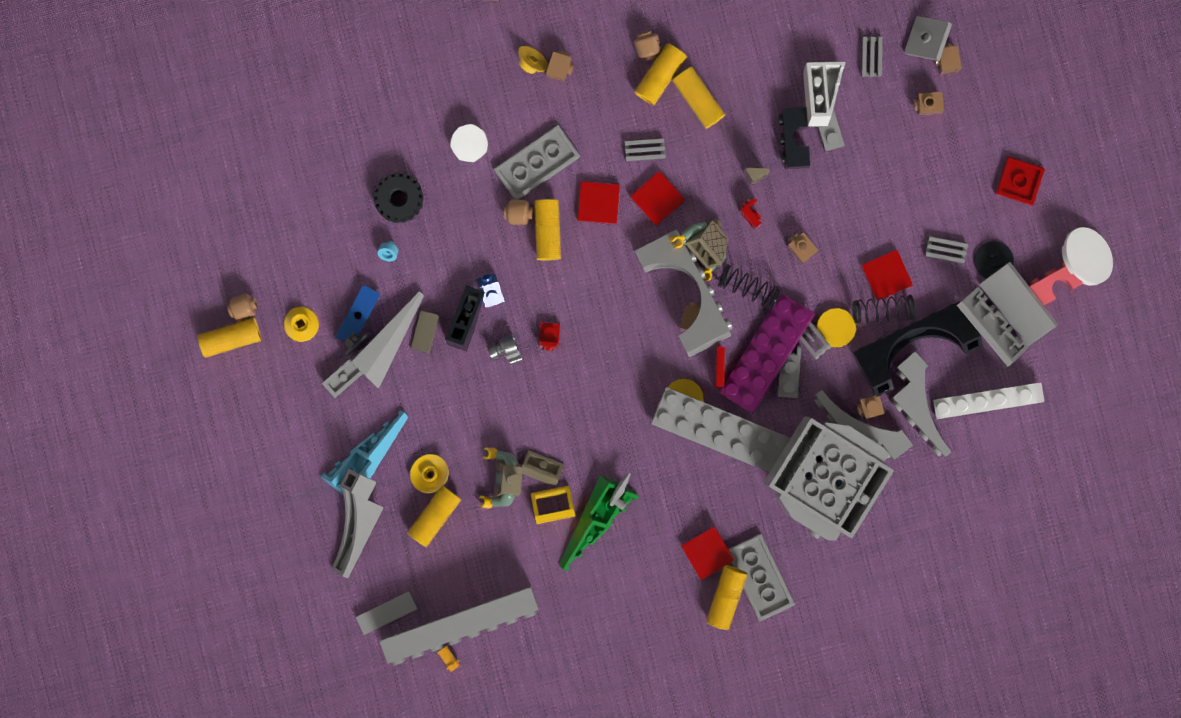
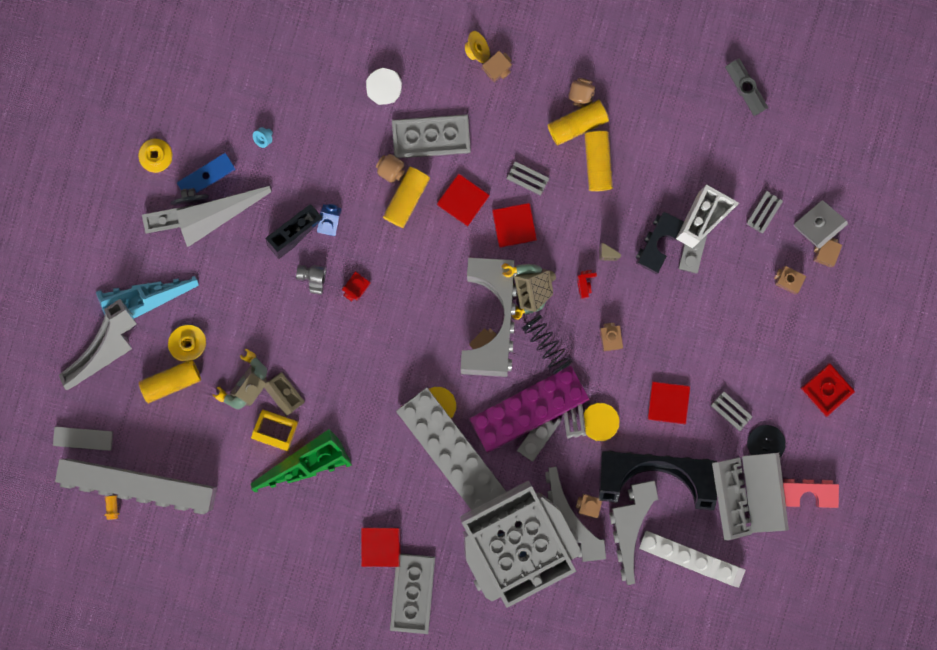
camera: 30 degrees right, 0 degrees up
(227, 337) = (87, 131): yellow piece -> none
(242, 307) = (113, 112): medium nougat head -> none
(413, 201) = (300, 112): black tyre -> none
(425, 332) = (254, 223): dark tan slope -> none
(615, 499) = (329, 456): light grey bar -> none
(719, 367) = (482, 397): red tile -> none
(725, 602) = (373, 594): yellow piece -> none
(856, 309) = (625, 418): black piece -> none
(1087, 256) = (847, 486): white tile -> none

